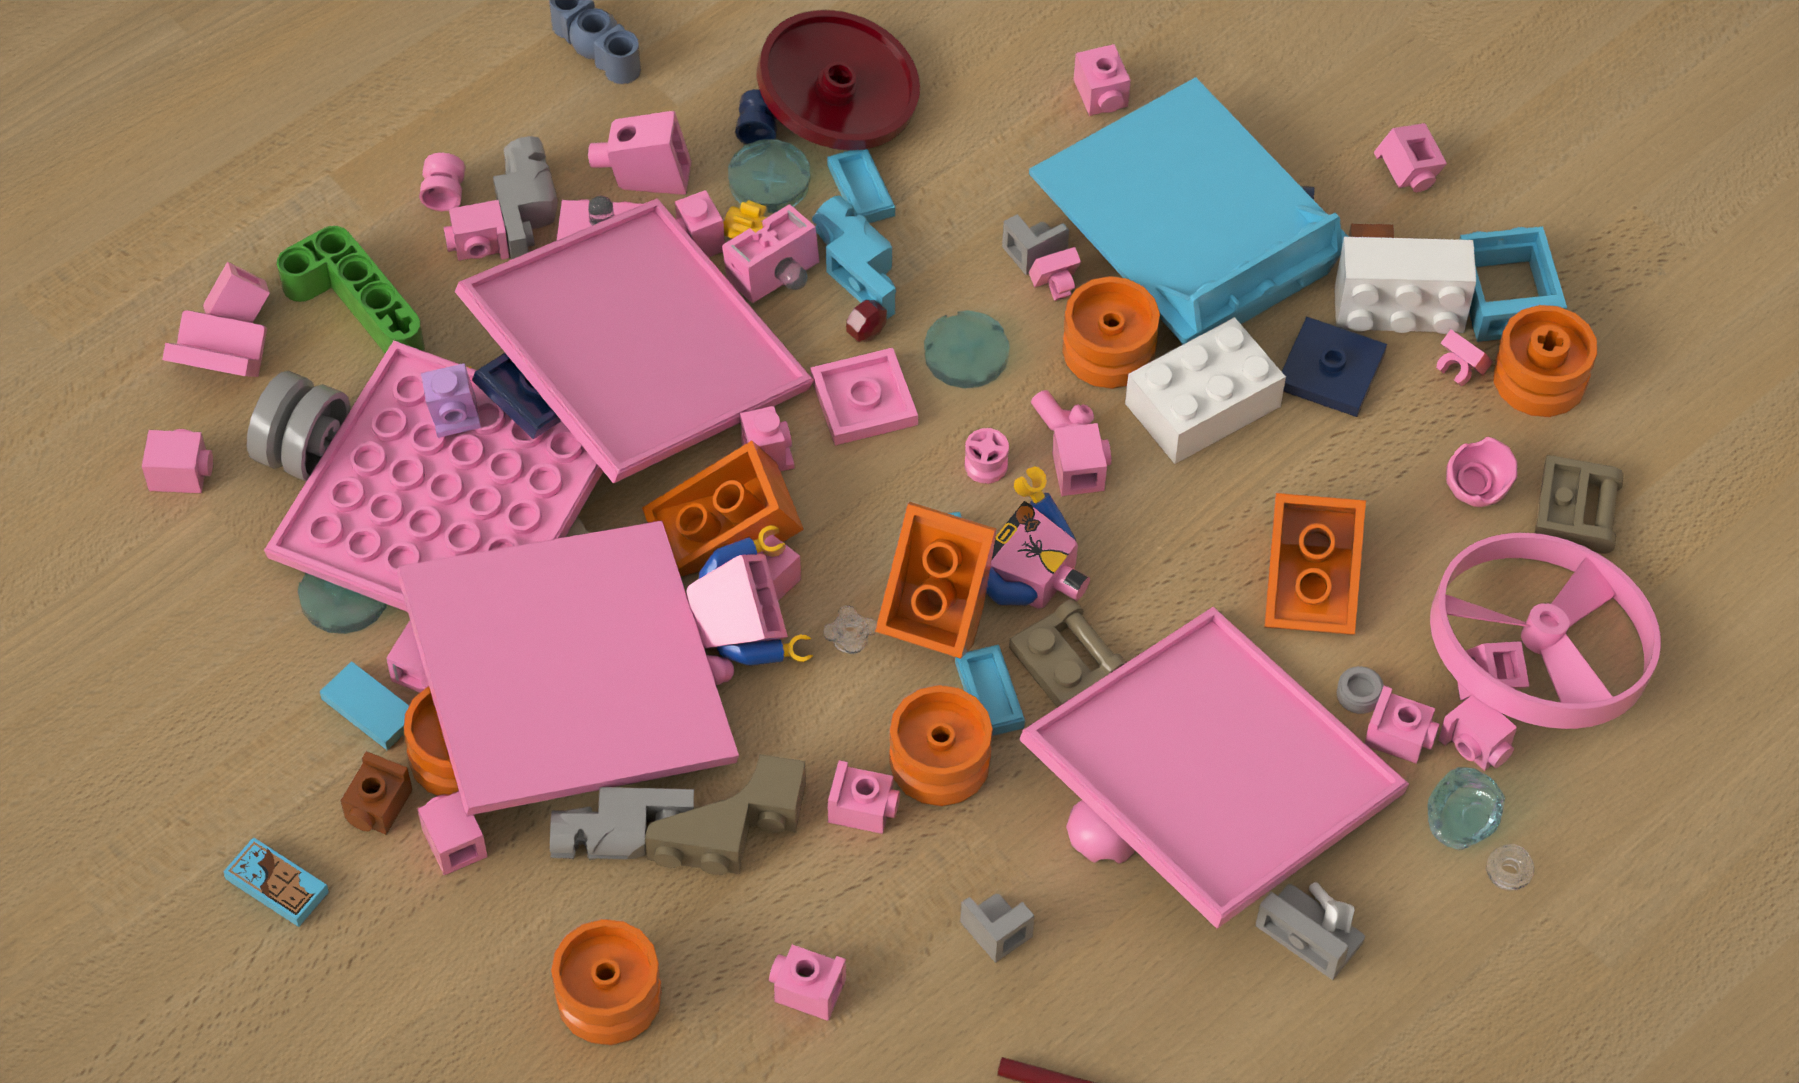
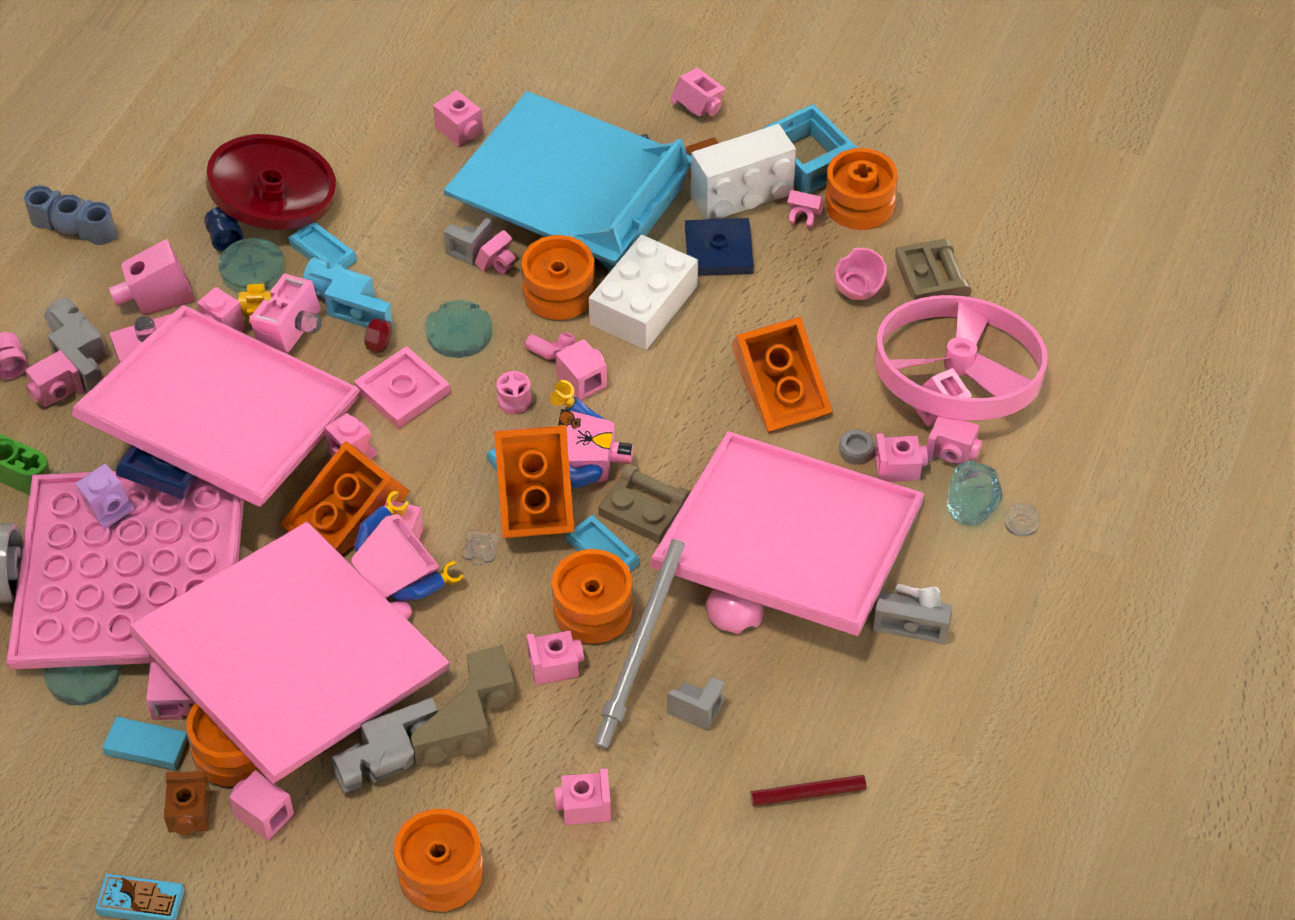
camera: 25 degrees left, 5 degrees down
(896, 892) = (614, 708): none -> light grey bar

